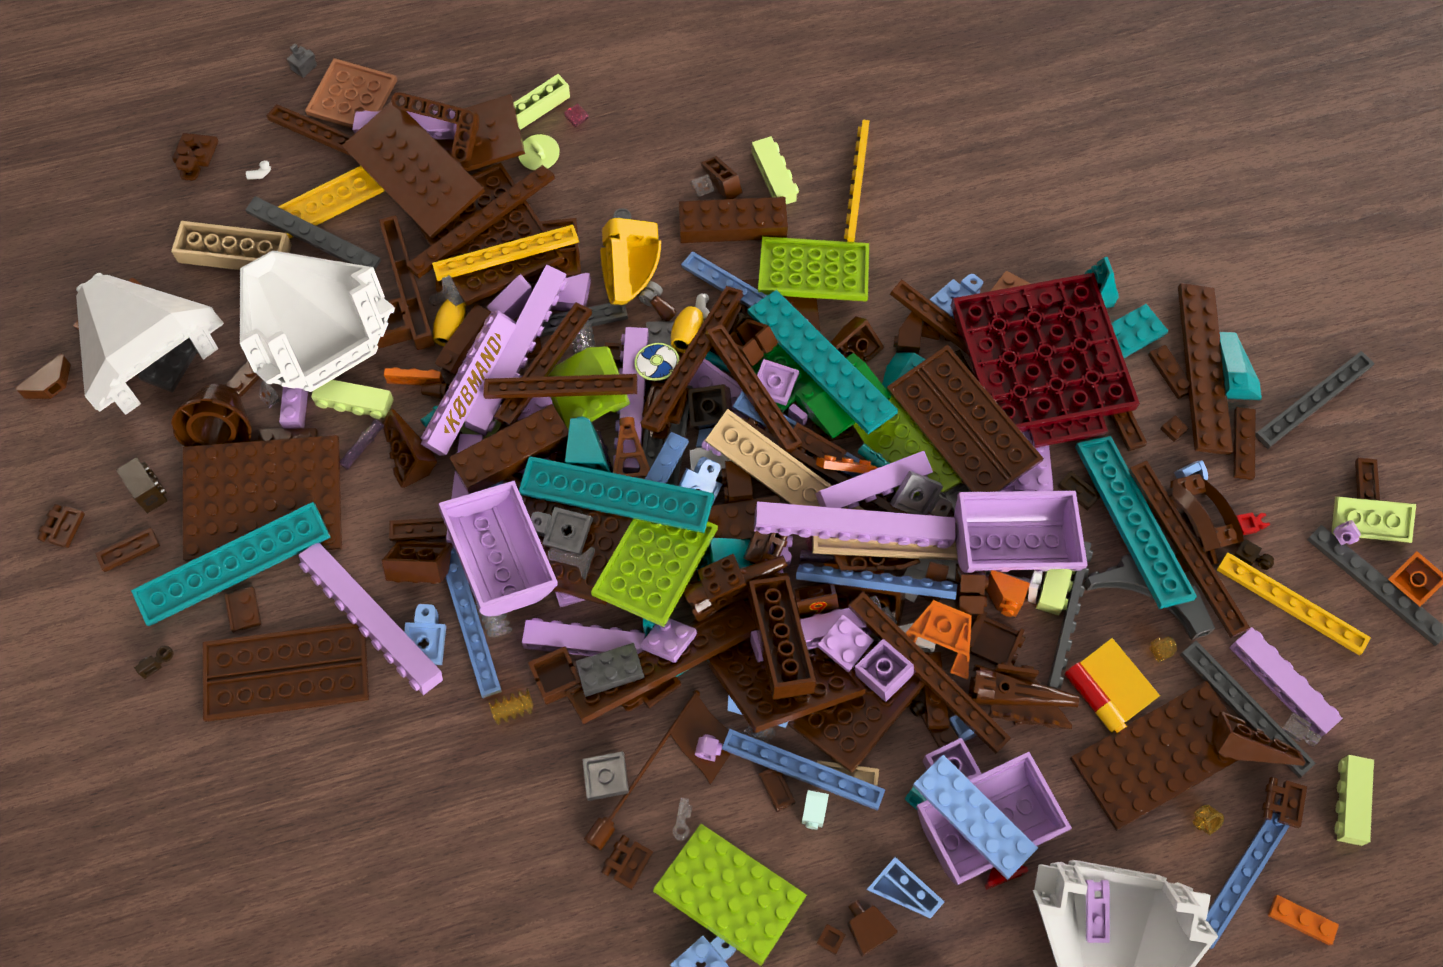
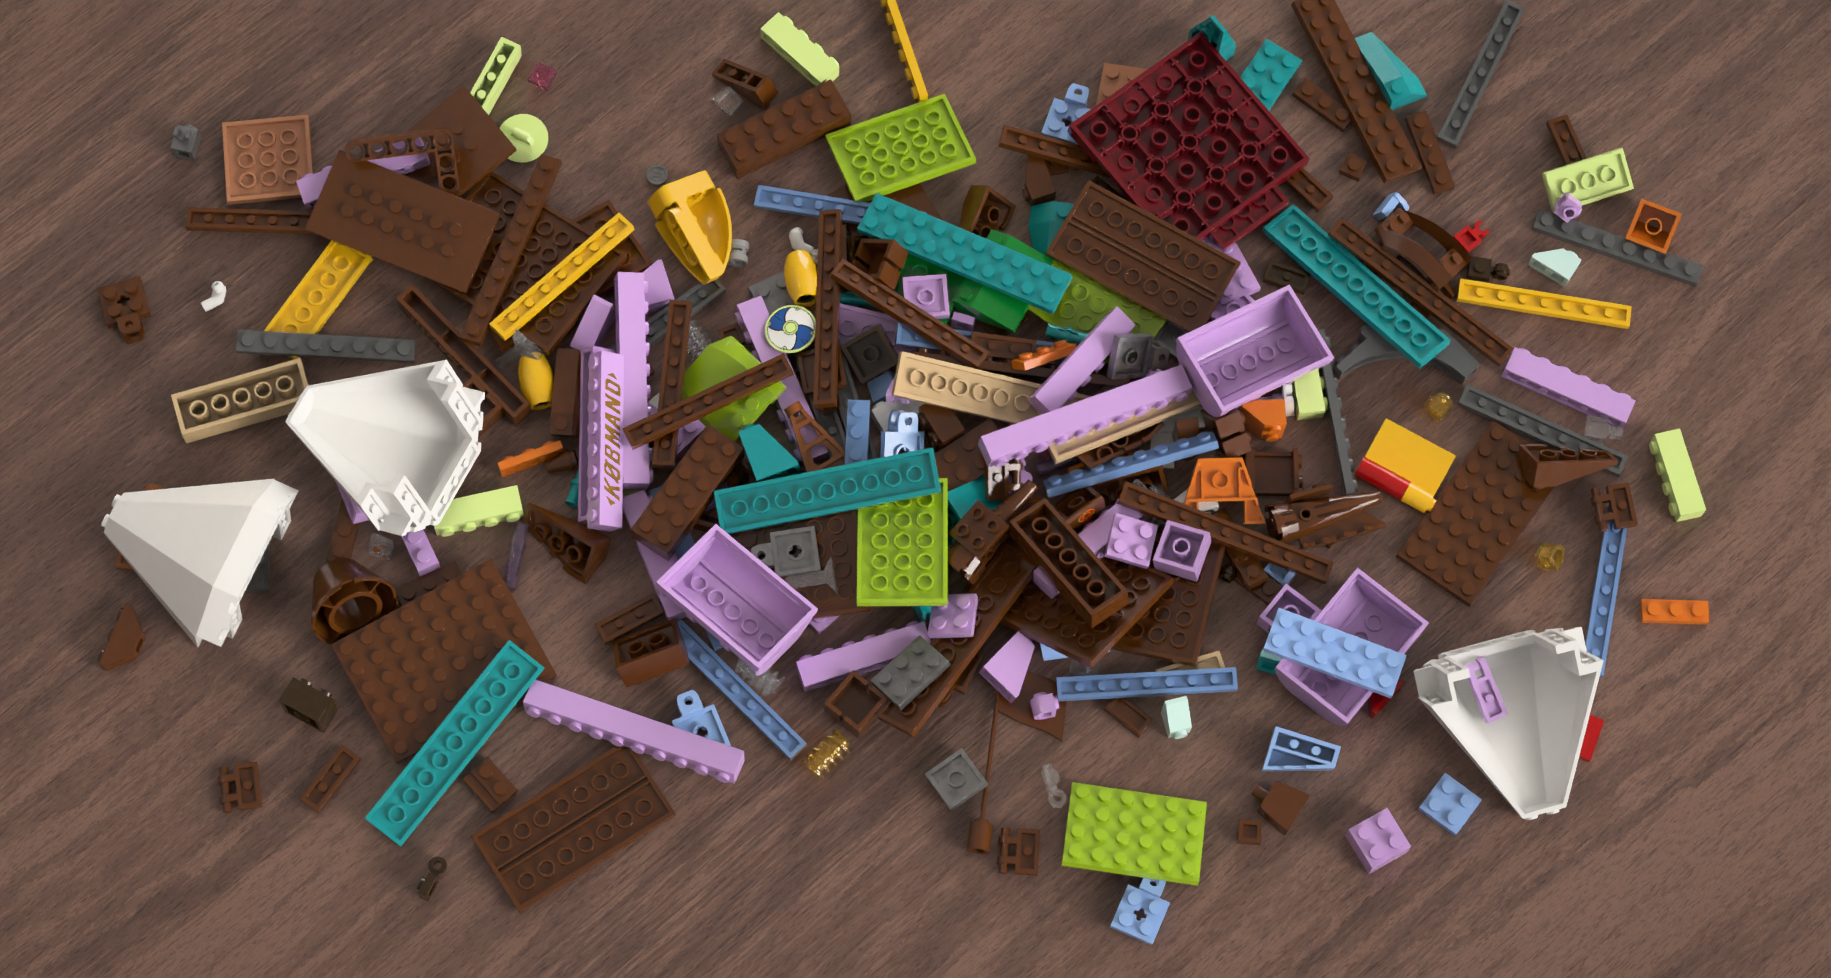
camera: 30 degrees left, 5 degrees up
(664, 309) = (761, 264): reddish brown cone -> none
(695, 701) = (1009, 666): none -> lavender slope
(1316, 575) = (1556, 264): none -> light aqua slope

